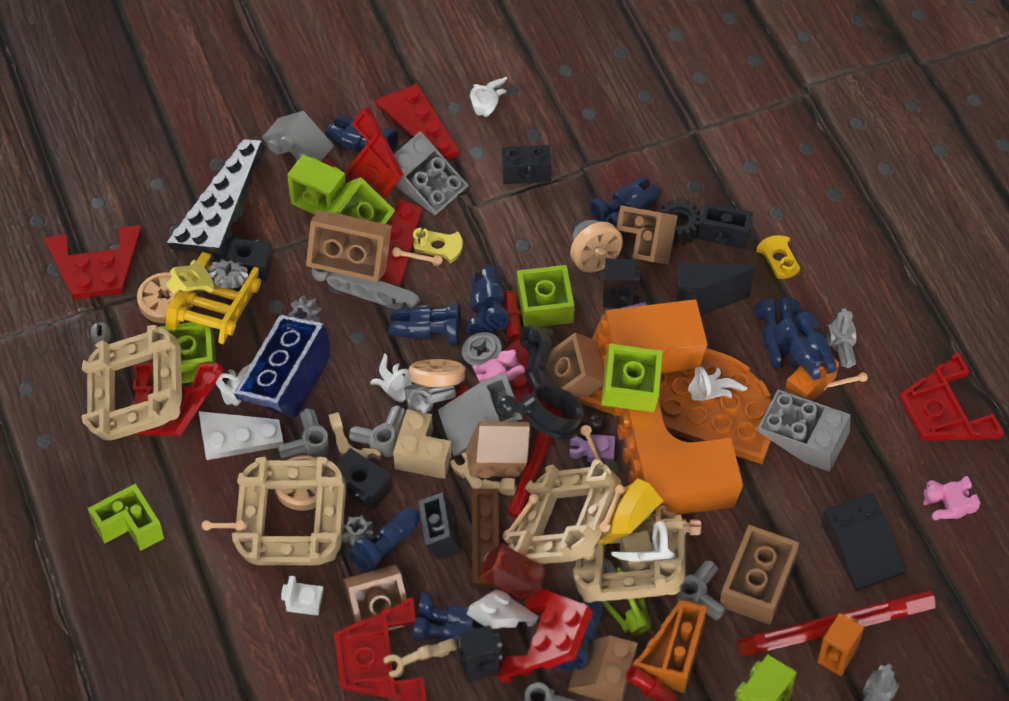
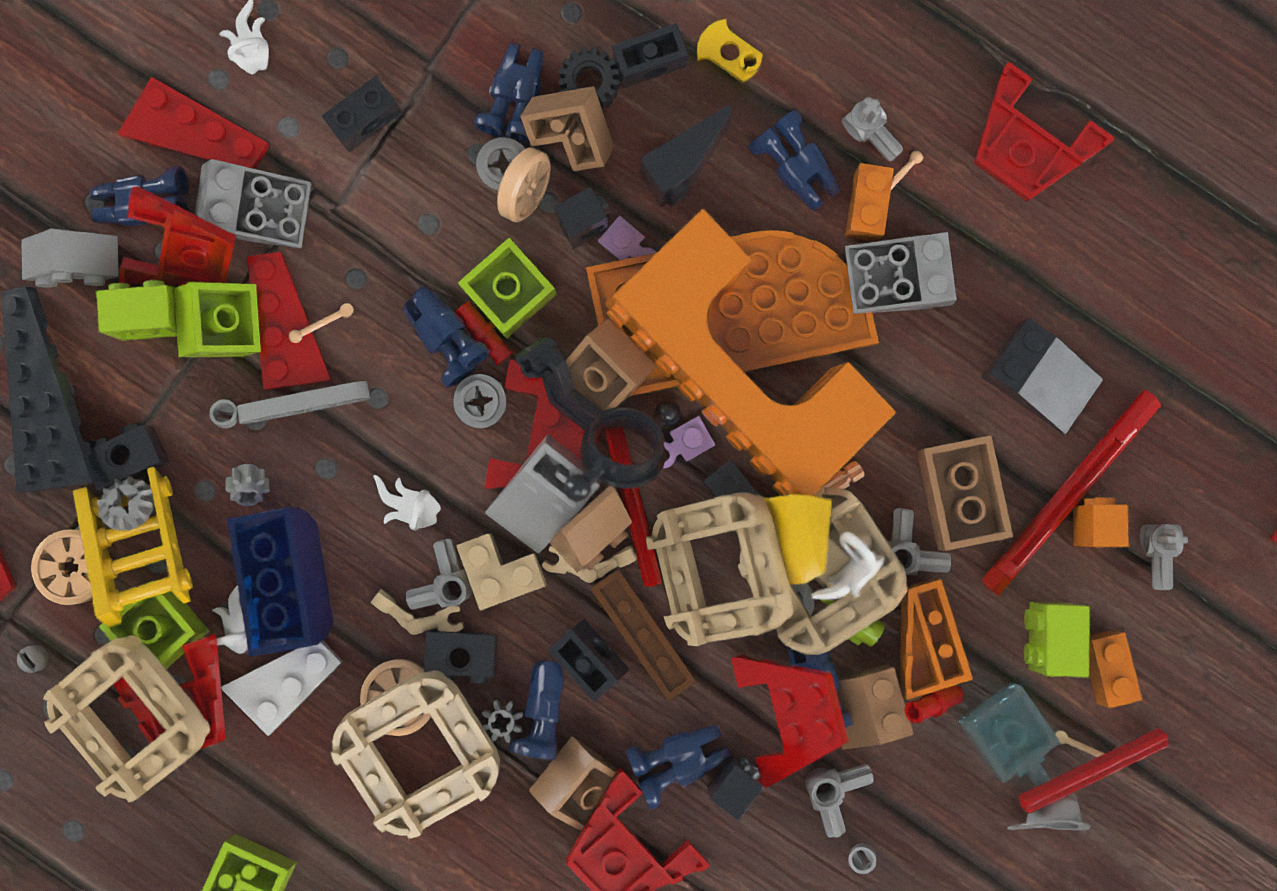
camera: 40 degrees left, 30 degrees up
(181, 281) = (87, 570): light yellow piece -> none
(240, 525) = (375, 807): light nougat hinge -> none
(302, 597) = (496, 832): white bracket -> none
(312, 433) = (368, 654): light grey axle -> none
(348, 245) = (241, 381): medium nougat brick -> none
(420, 323) = (386, 407): dark blue piece -> none
(422, 398) = (458, 511): light grey axle -> none
(424, 652) = (686, 800): tan piece -> none
(437, 373) = (471, 468): light nougat wheel -> none
(450, 251) = (352, 286): light yellow piece -> none
(500, 611) = (719, 717): white wing -> none
(505, 363) = (518, 426): bright pink animal -> none
(513, 572) = (706, 668): clear red brick -> none
(533, 499) = (662, 611): light nougat hinge -> none
(586, 430) = (672, 441): light nougat hinge -> none
(605, 526) = (790, 577): light nougat hinge -> none
(632, 378) = (707, 376): lime brick -> none
(711, 386) = (766, 292): white piece -> none
(808, 352) = (861, 184): dark blue piece -> none
(954, 499) = (1106, 257): bright pink animal -> none

